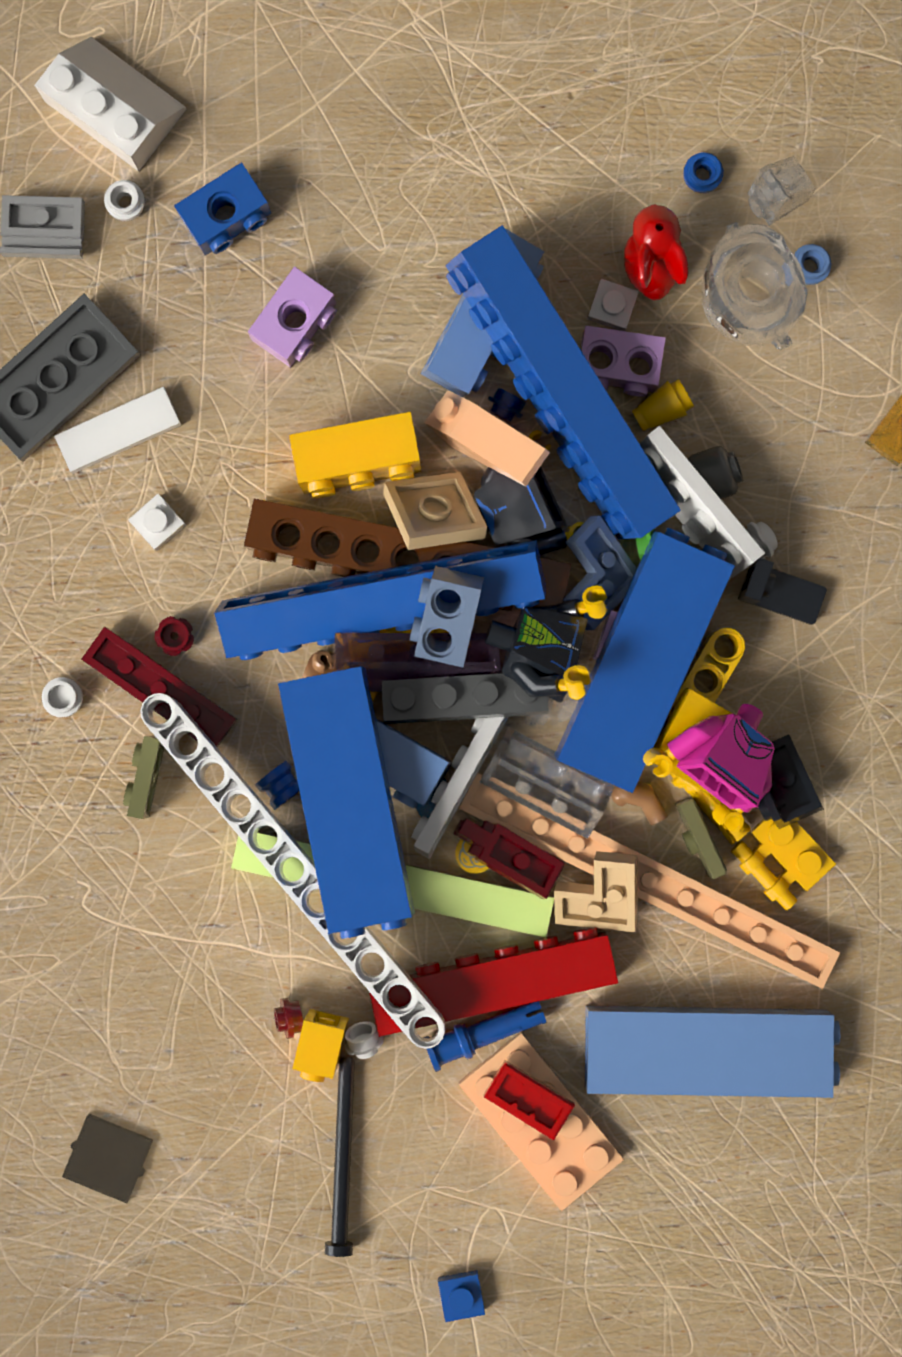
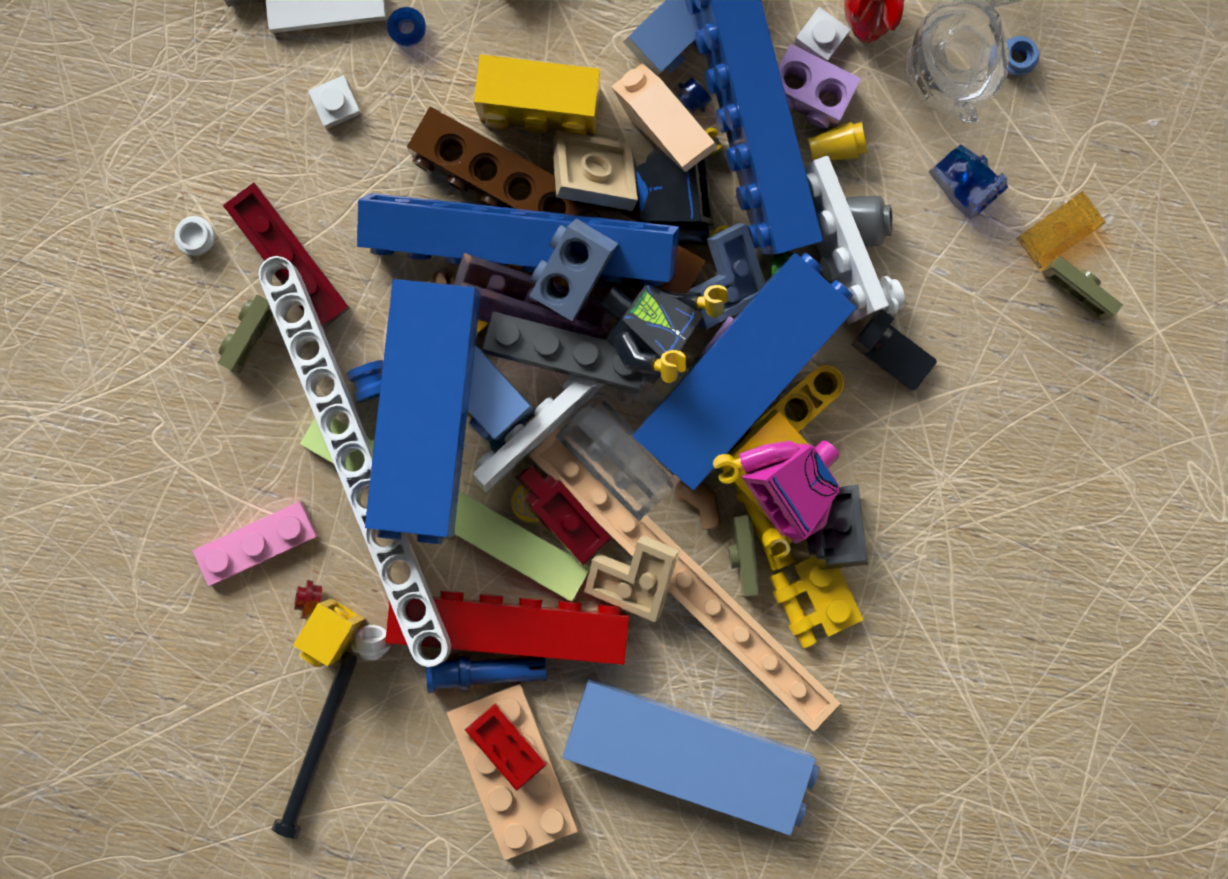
camera: 15 degrees right, 0 degrees up
(107, 1158) = (99, 676): clear smoke piece -> none
(166, 628) = (306, 212): dark red plate -> none
(197, 415) = (401, 16): none -> clear blue plate
(218, 979) = (255, 543): none -> bright pink plate
(801, 402) = (968, 180): none -> clear blue hand

